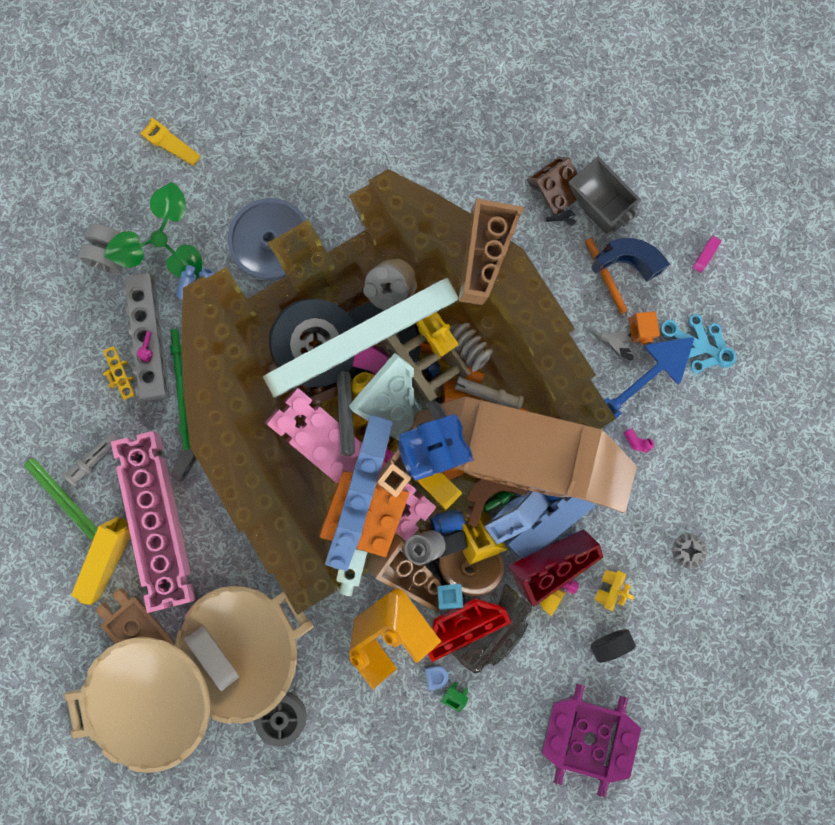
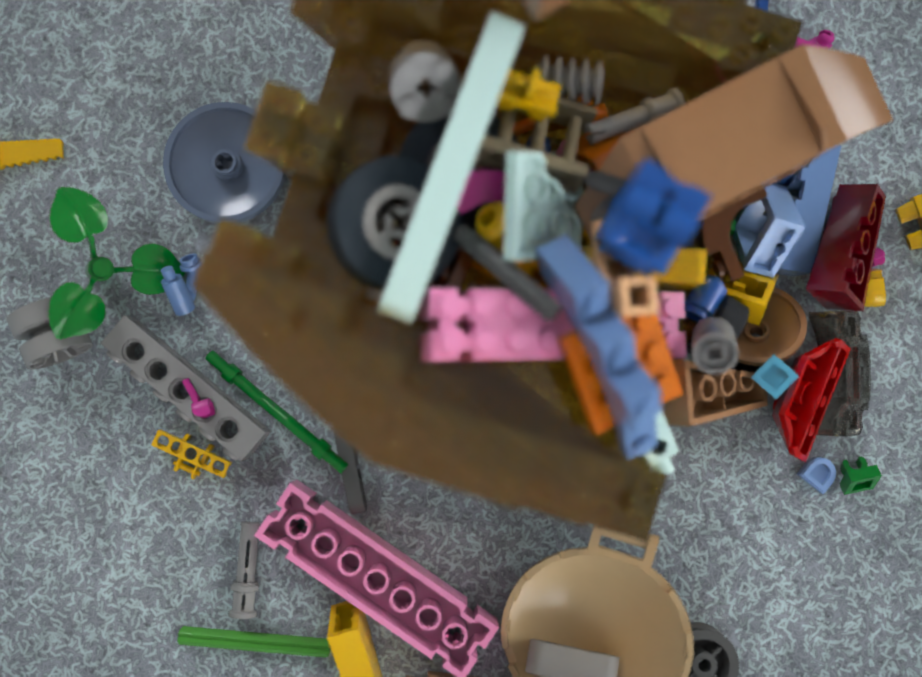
camera: 40 degrees left, 5 degrees up
(399, 624) = (745, 451): light orange windscreen -> none

